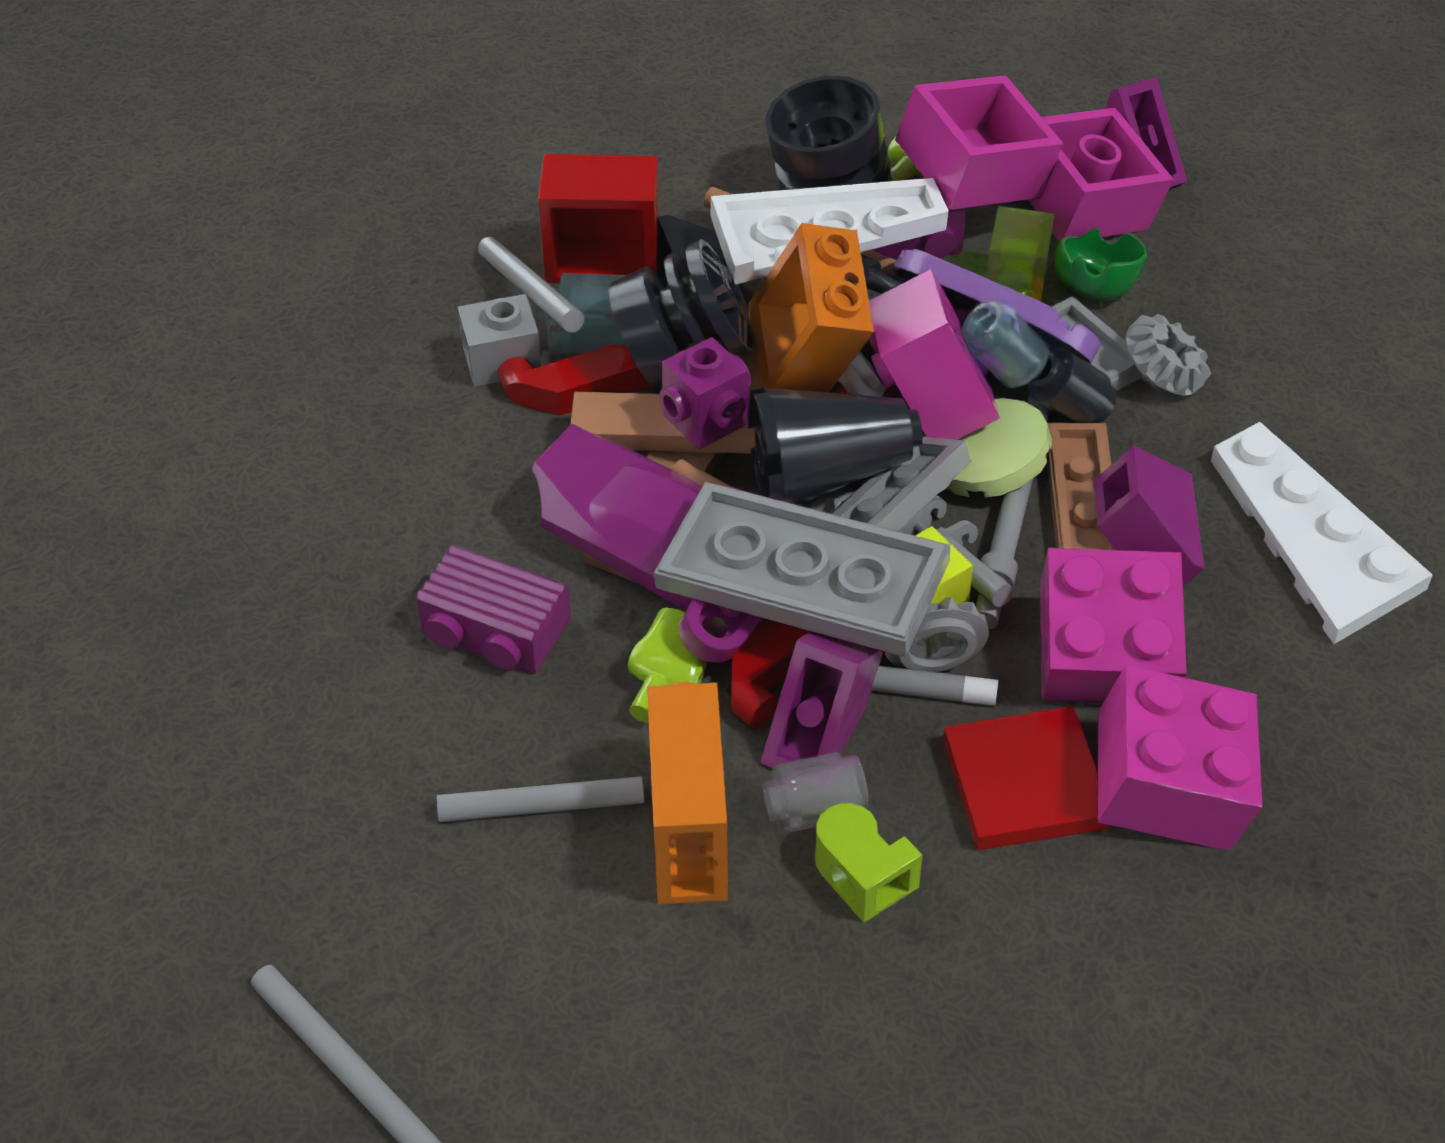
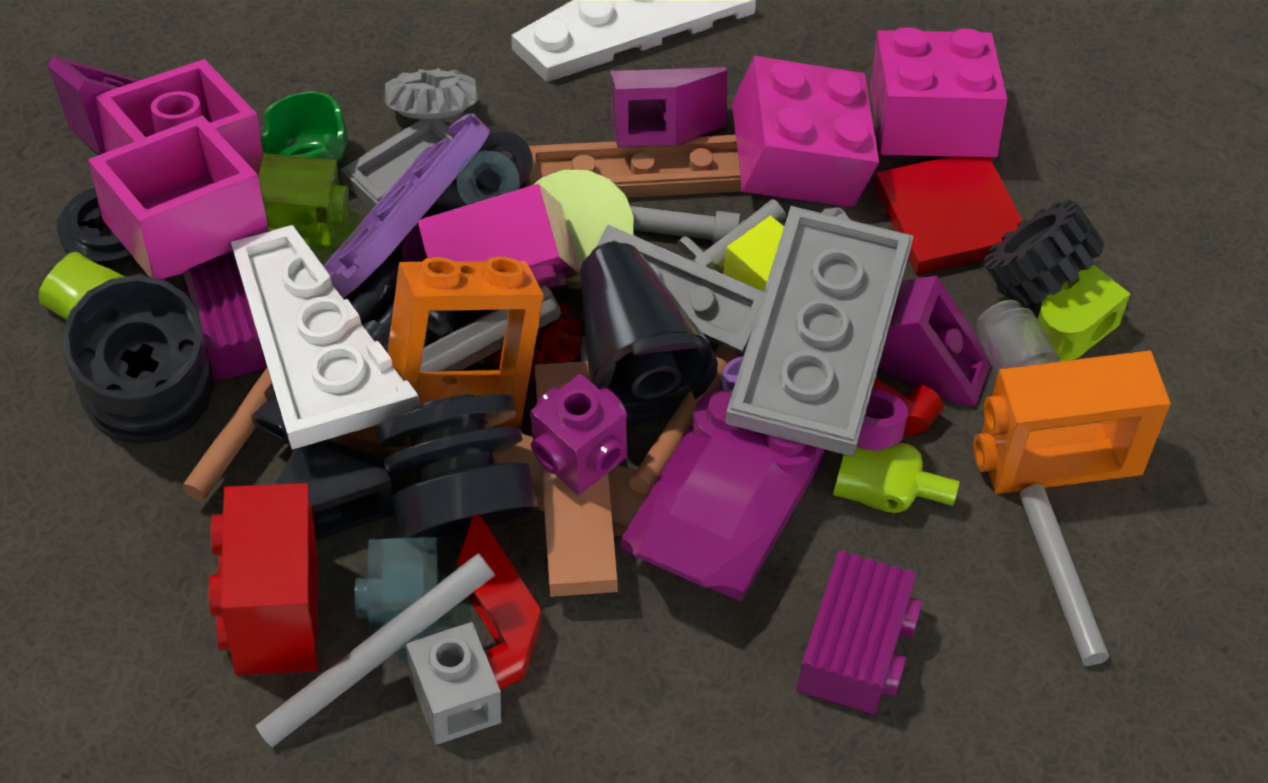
camera: 100 degrees left, 5 degrees up
(925, 813) = (1044, 253): none -> black tyre

